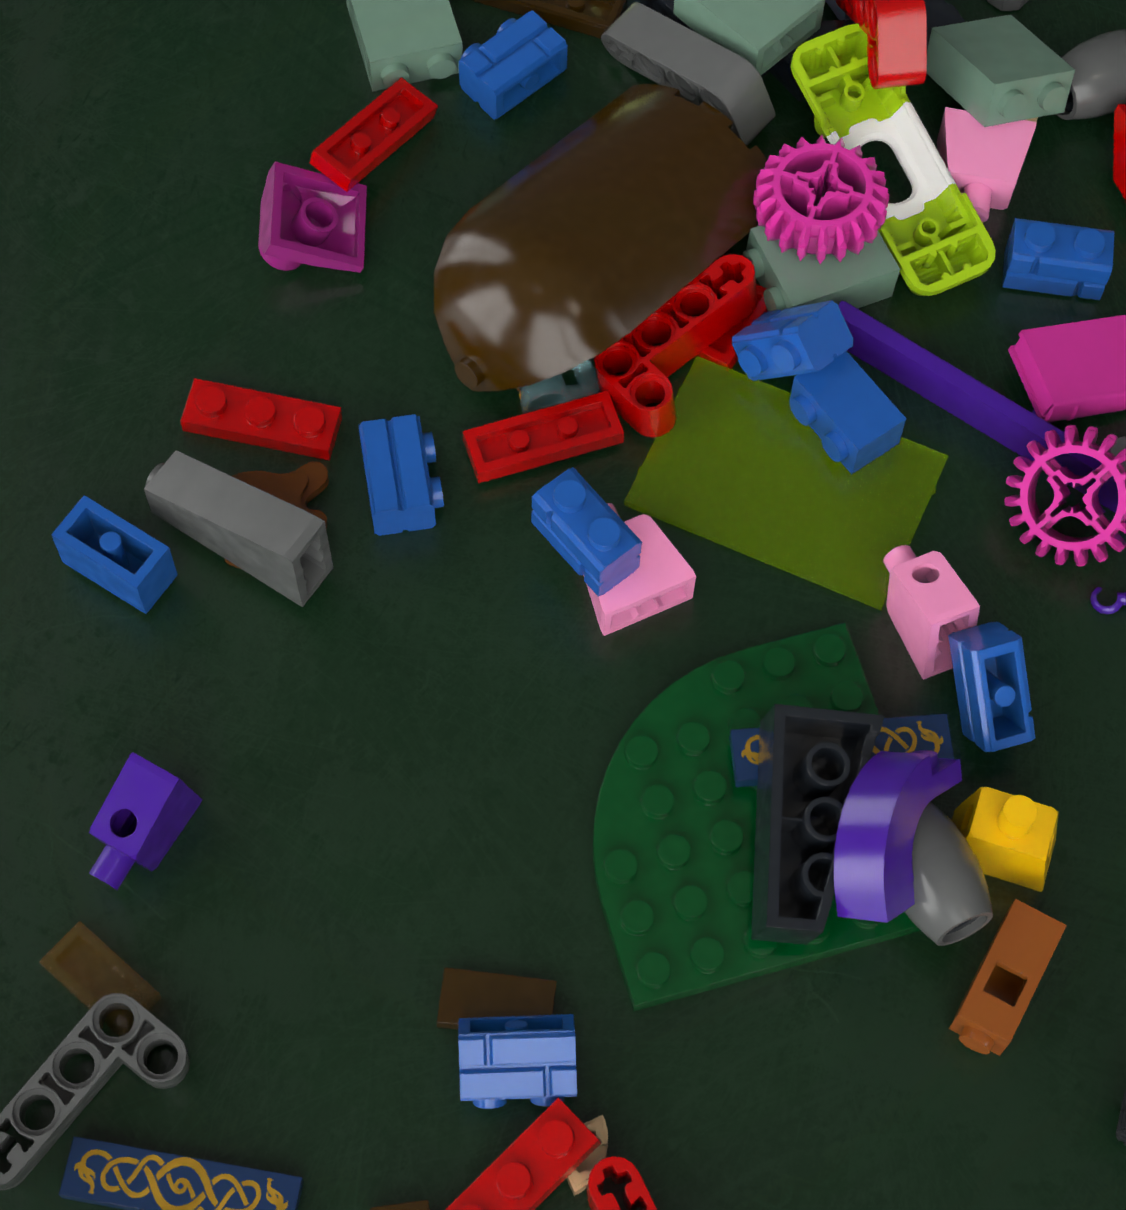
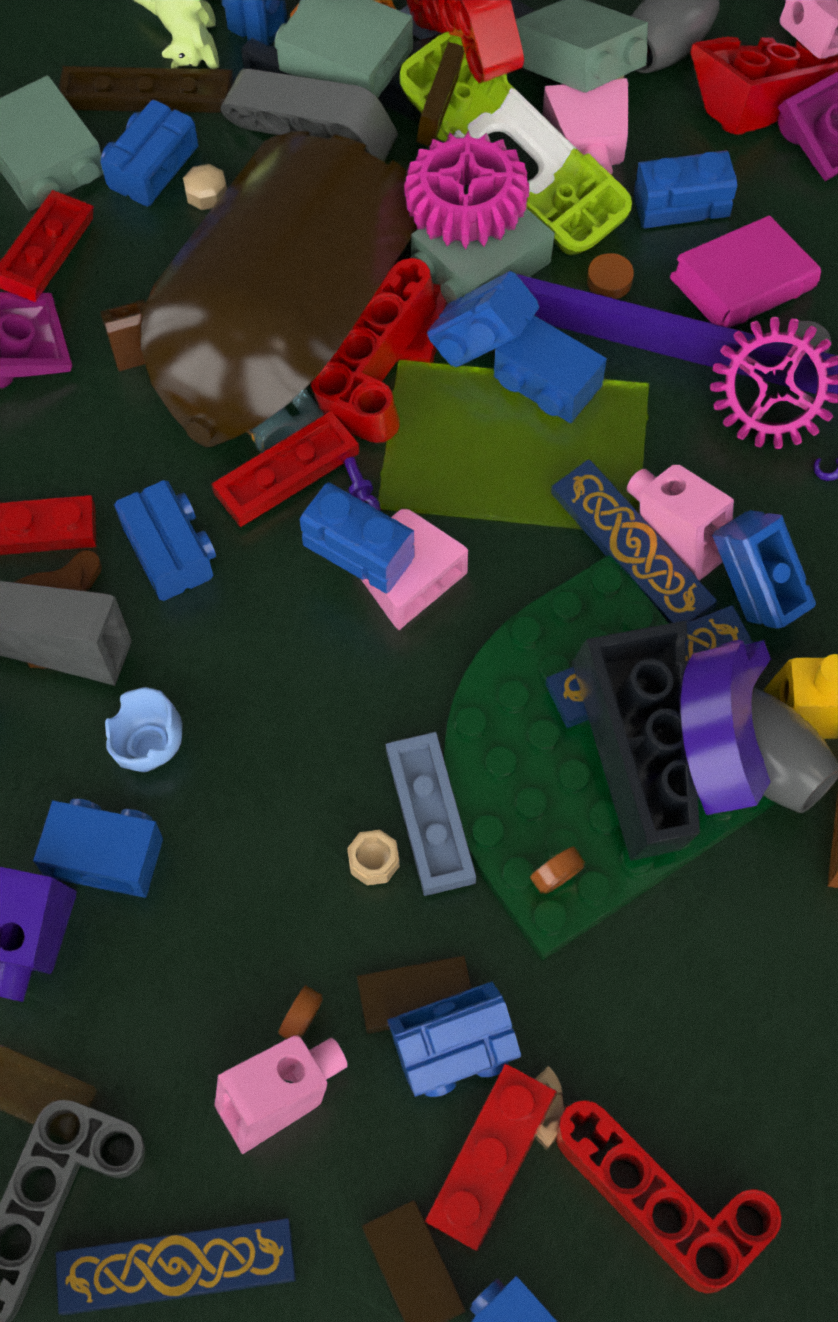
camera: 15 degrees left, 0 degrees up
(236, 763) = (99, 847): none -> blue brick
(309, 1053) = (257, 1099): none -> bright pink torso
(315, 661) = (144, 730): none -> light blue hair
(377, 987) = (301, 1013): none -> dark orange tile
(424, 246) = (124, 333): none -> reddish brown slope
(499, 856) = (373, 857): none -> tan tile
(558, 115) = (204, 186): none -> tan tile
(570, 830) = (430, 814): none -> sand blue plate
(613, 479) = (360, 488): none -> dark purple hand
(674, 926) = (558, 870): none -> dark orange tile
(825, 90) = (440, 94): none -> dark brown tile
(870, 620) = (632, 544): none -> dark blue tile
(947, 329) = (610, 275): none -> dark orange tile

